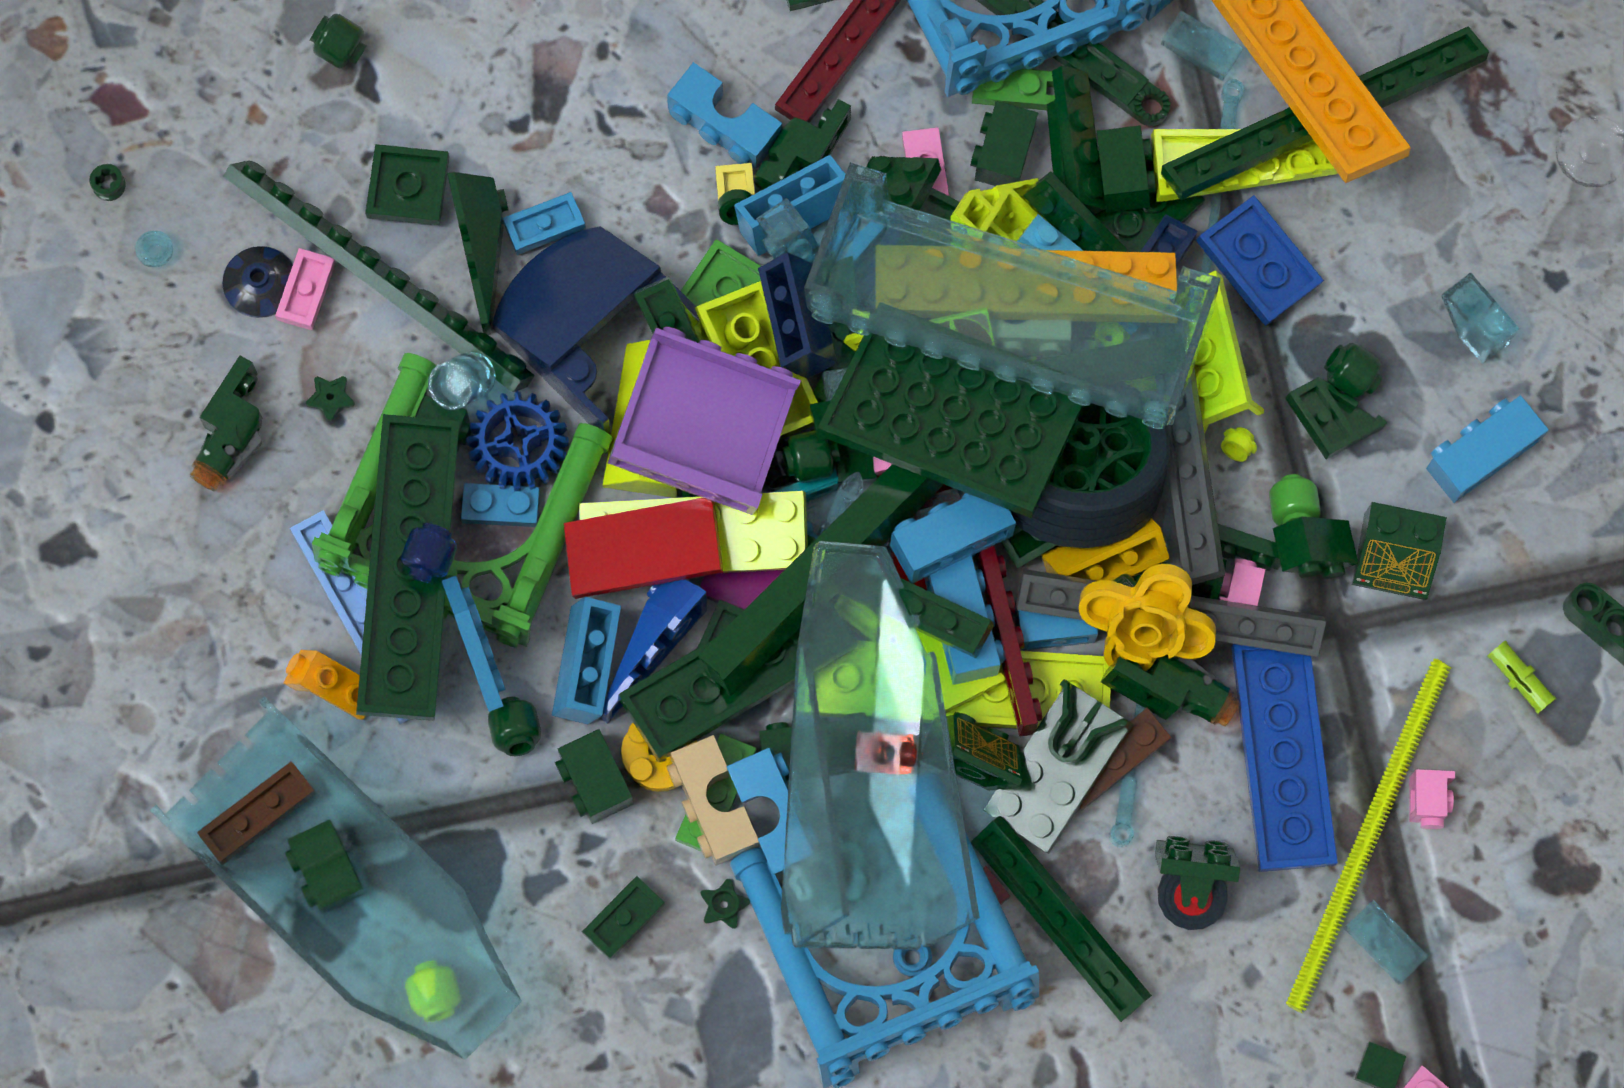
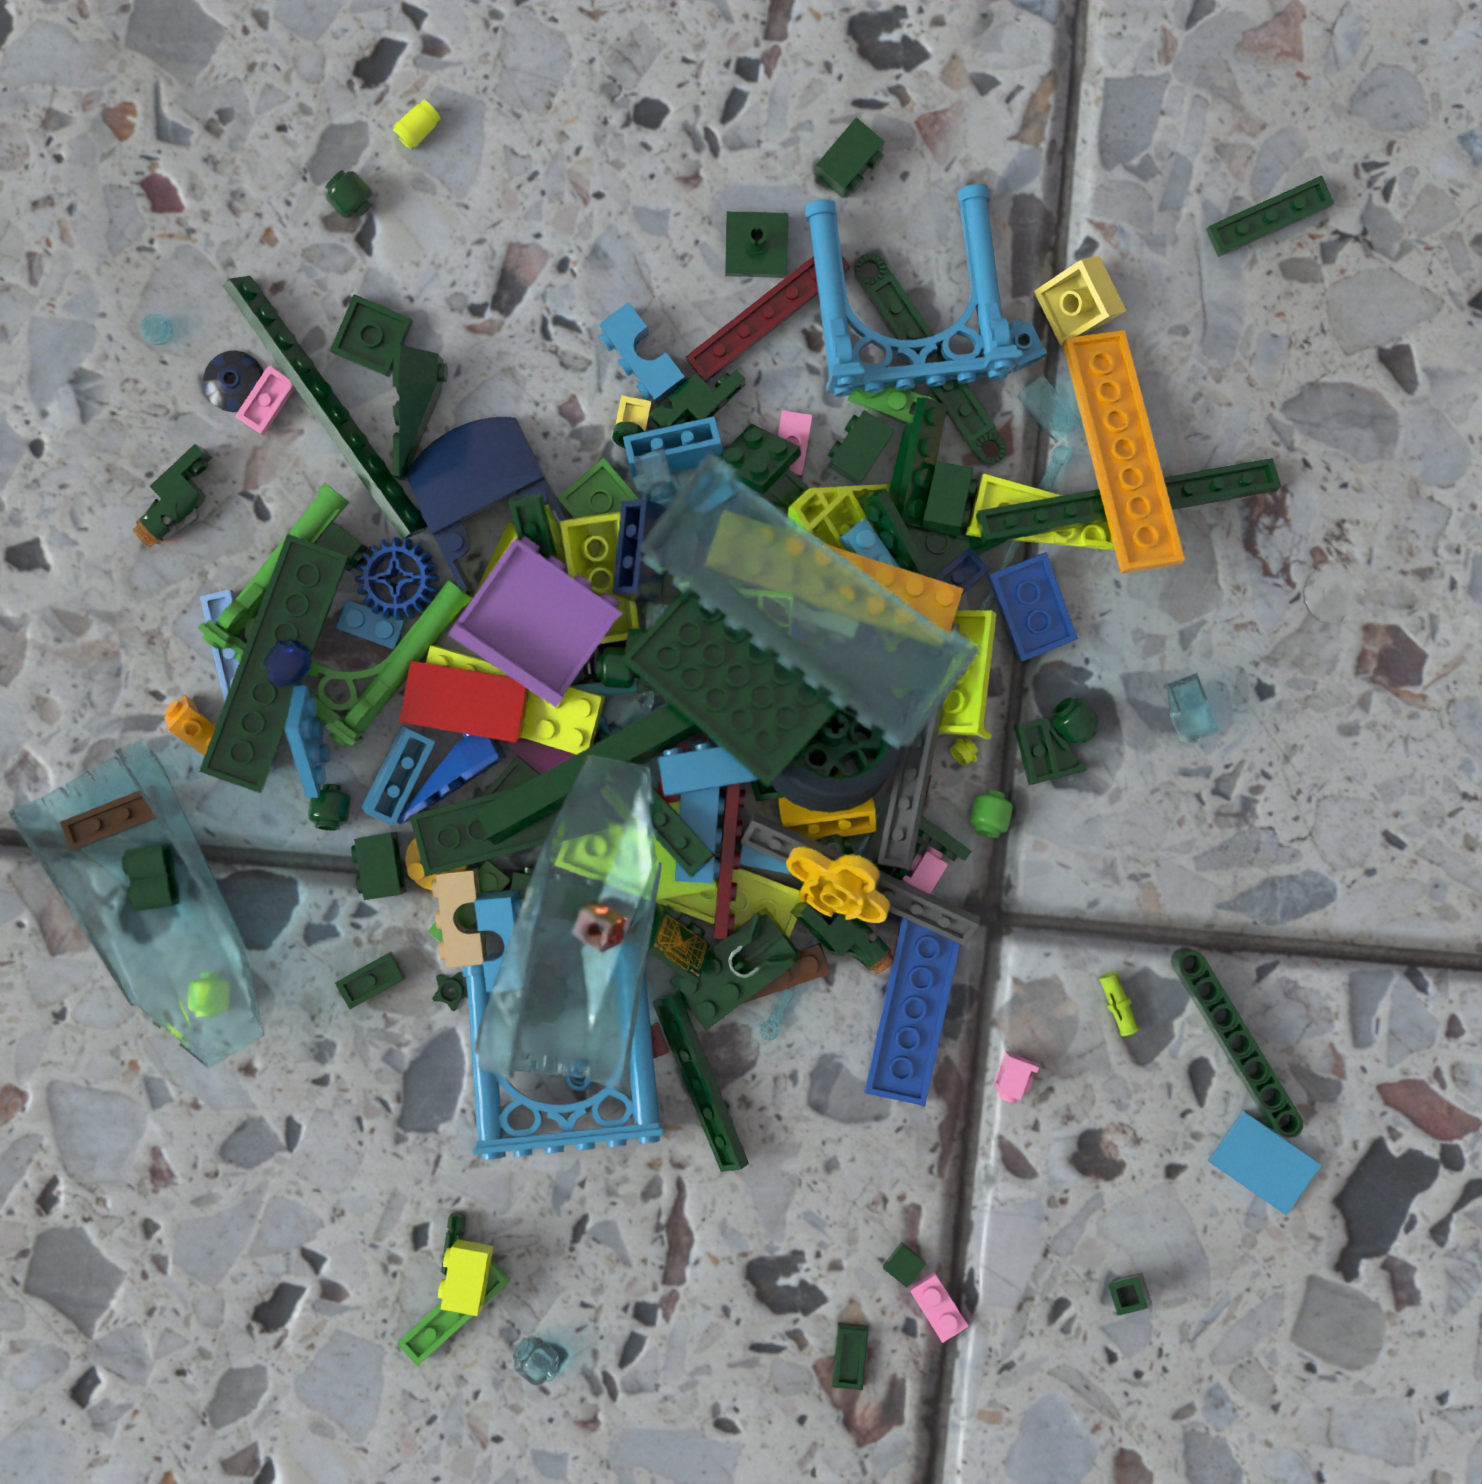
camera: 20 degrees right, 15 degrees up
(116, 187) = (138, 268): dark green bush -> none
(337, 404) = (268, 502): dark green plate -> none
(461, 380) = (362, 519): clear light blue wheel -> none
(544, 223) = (471, 401): dark azure plate -> none
(1194, 880) = (812, 1085): dark green plate -> none
(1315, 547) = (993, 859): dark green brick -> none
(1367, 835) = (958, 1089): neon yellow axle -> none
(1386, 942) = (942, 1173): clear light blue plate -> none
(1399, 550) = (1059, 877): dark green slope -> none
(1486, 447) = (1158, 815): dark azure brick -> none

